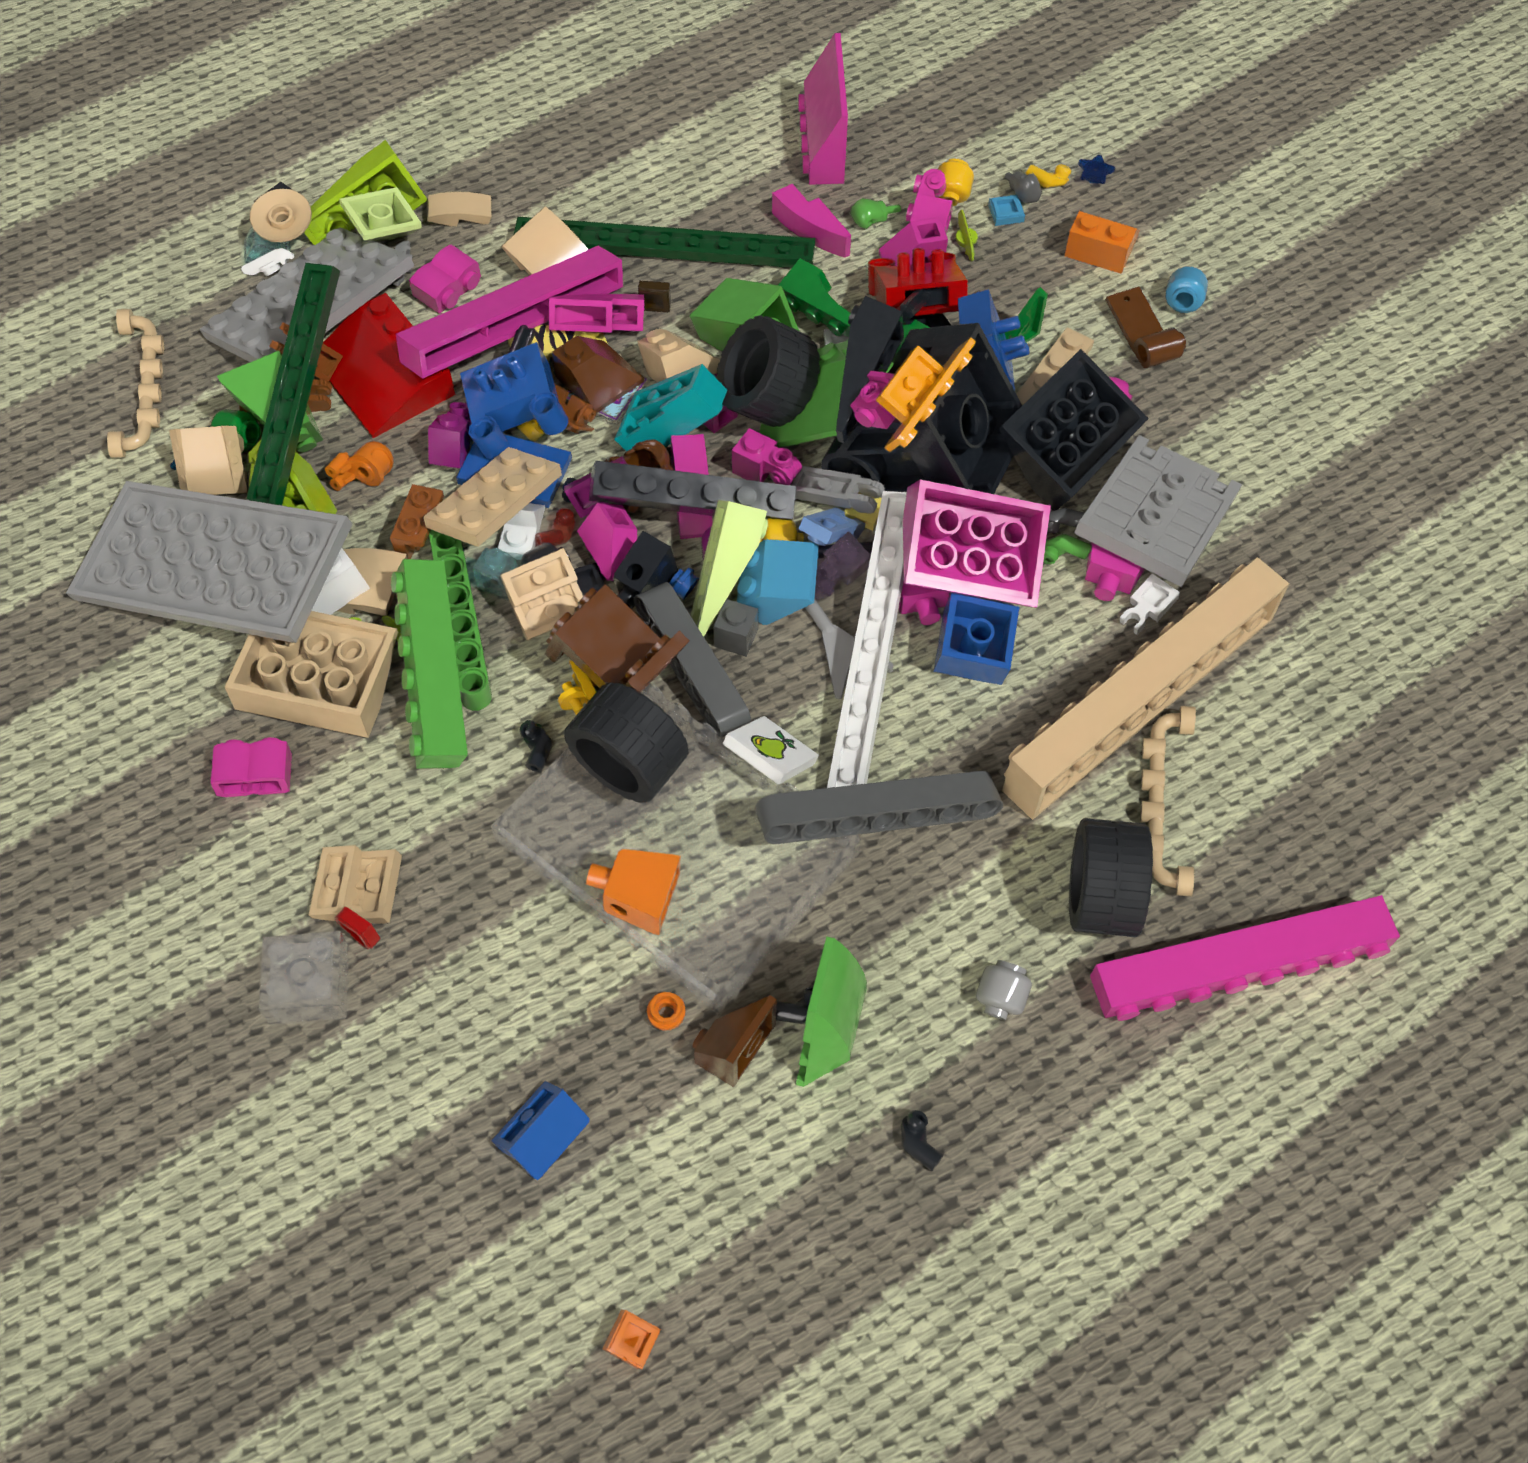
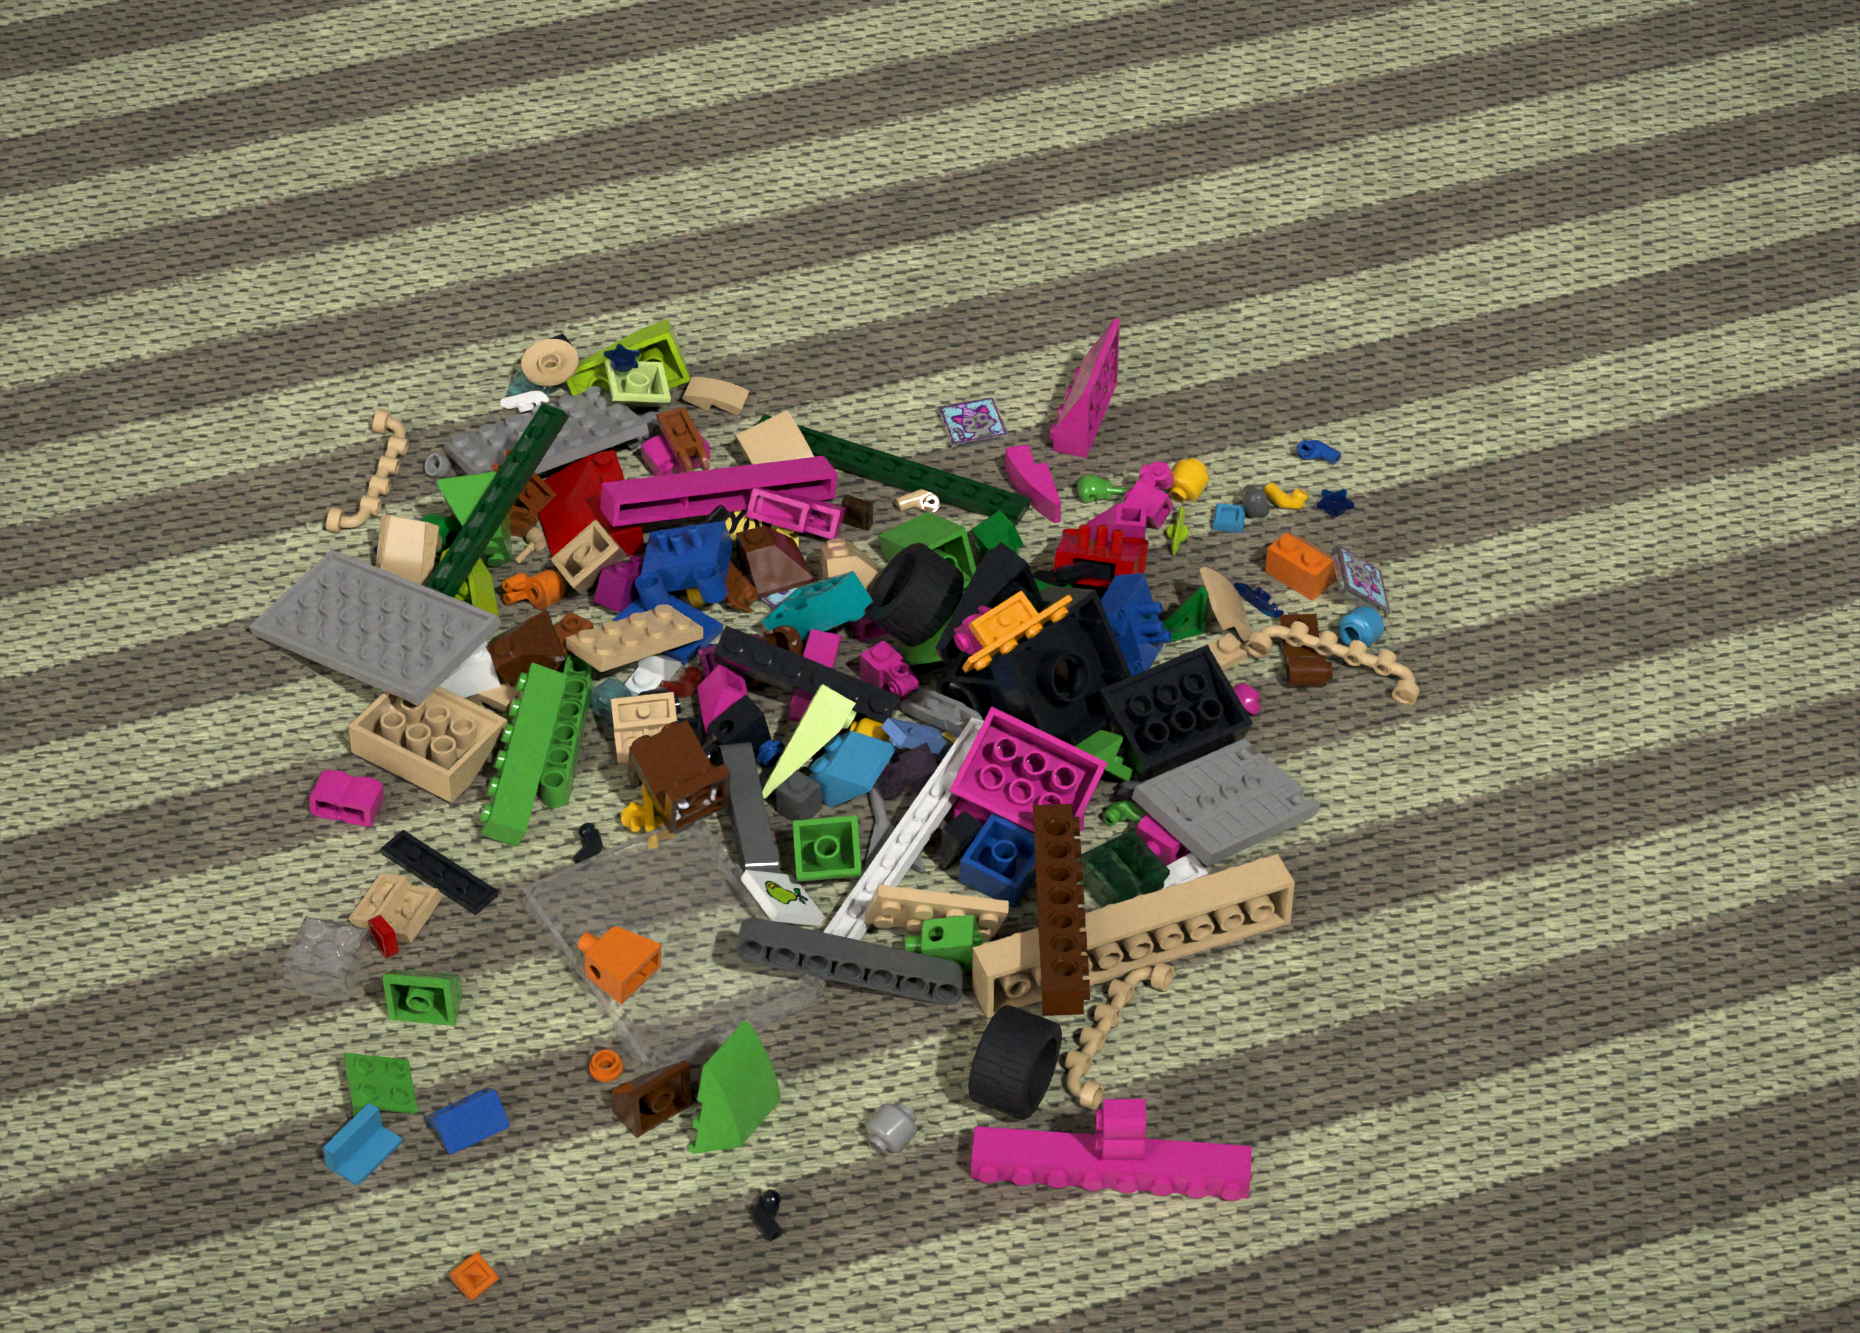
camera: 20 degrees right, 15 degrees down
(201, 361) = (433, 469): none -> light grey hinge
(340, 411) = (536, 542): none -> tan hand
(357, 193) = (622, 358): none -> clear blue plate
(384, 539) = (526, 644): none -> reddish brown slope
(387, 825) = (439, 872): none -> black tile
(406, 417) = (586, 556): none -> tan slope
(425, 1119) = (381, 1082): none -> bright green hinge
(431, 989) = (423, 996): none -> bright green slope
(435, 1208) = (360, 1146): none -> dark azure panel
(452, 263) = (683, 438): none -> dark orange hinge
(626, 742) = (653, 847): black tyre -> none
(707, 266) = (918, 499): none -> tan arm
(722, 176) = (972, 424): none -> tile
(794, 681) = (827, 848): none -> bright green slope
(927, 629) = (957, 838): none -> black slope
(947, 722) = (911, 907): none -> tan plate
(979, 744) = (948, 939): none -> bright green torso
(1022, 485) = (1105, 747): none -> bright green slope
(1053, 122) = (1317, 450): none -> blue arm
(1054, 637) = (1058, 910): none -> reddish brown brick
(1057, 300) = (1226, 603): none -> tan slope
(1075, 285) = (1259, 599): none -> clear blue piece
(1097, 618) = (1122, 870): none -> clear green slope
(1105, 331) = (1326, 644): none -> tan bar
(1164, 241) = (1360, 580): none -> tile
(1267, 929) = (1121, 1129): none -> dark pink brick

